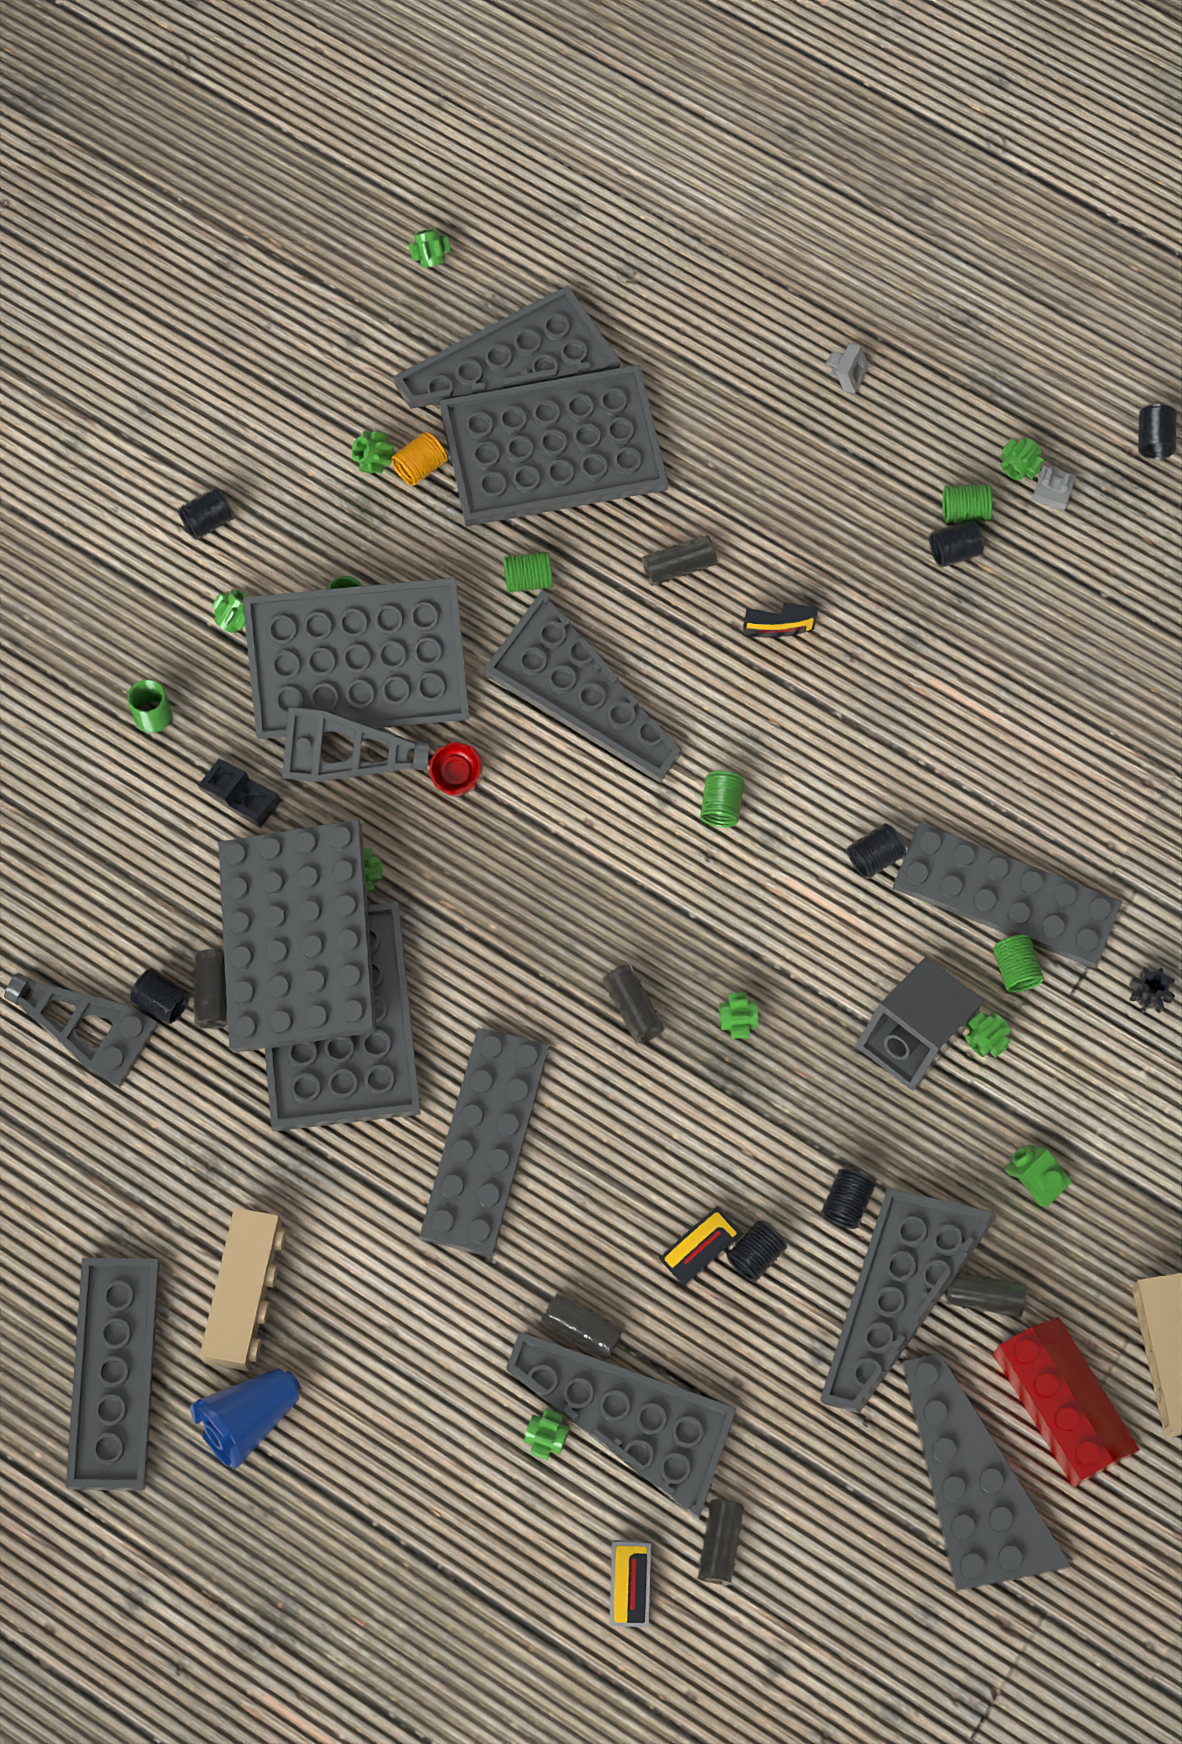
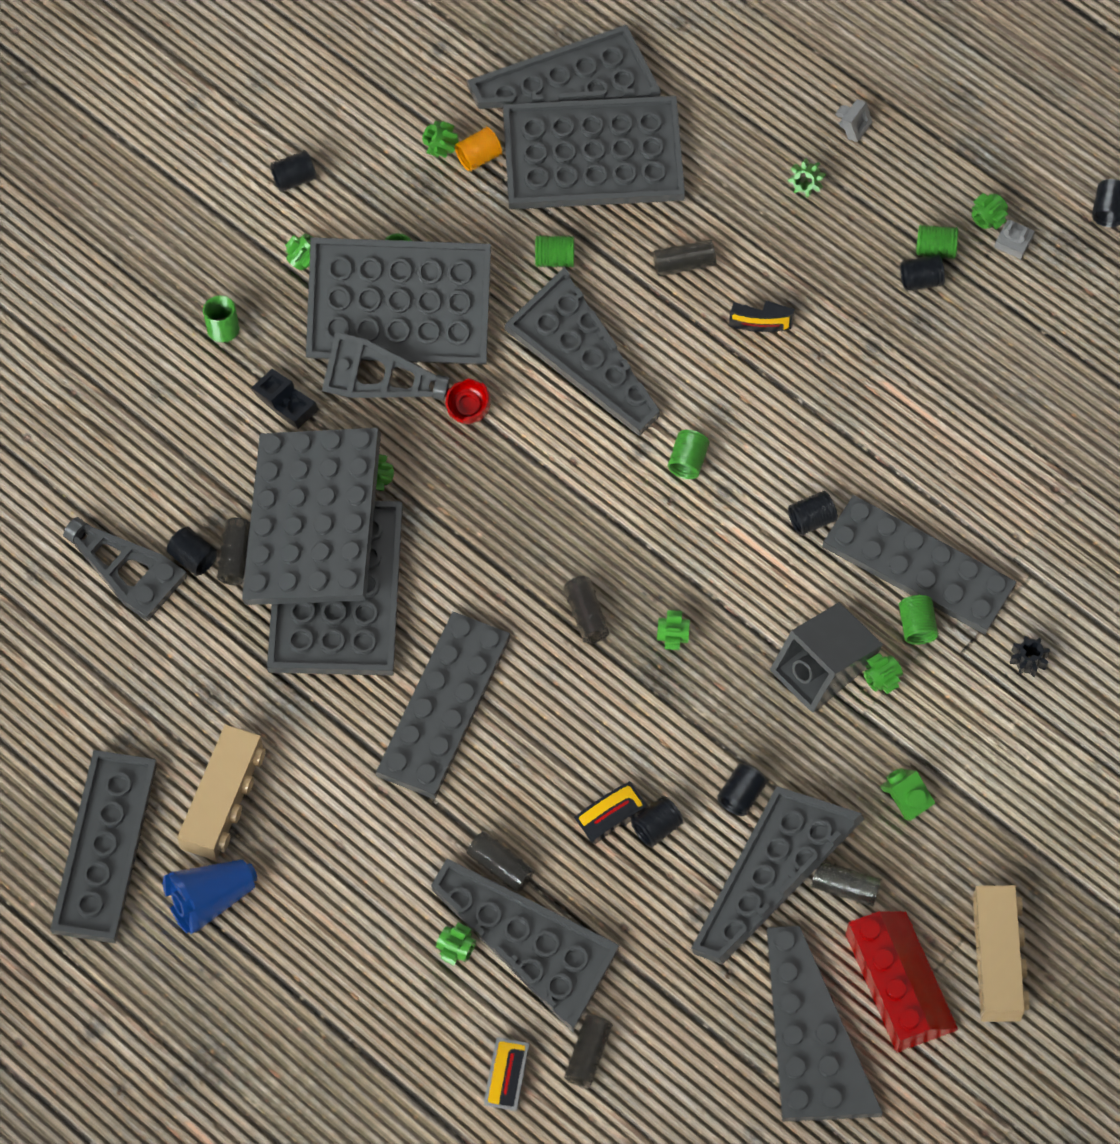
camera: 10 degrees right, 5 degrees down
(811, 439) = (801, 183): none -> bright green gear

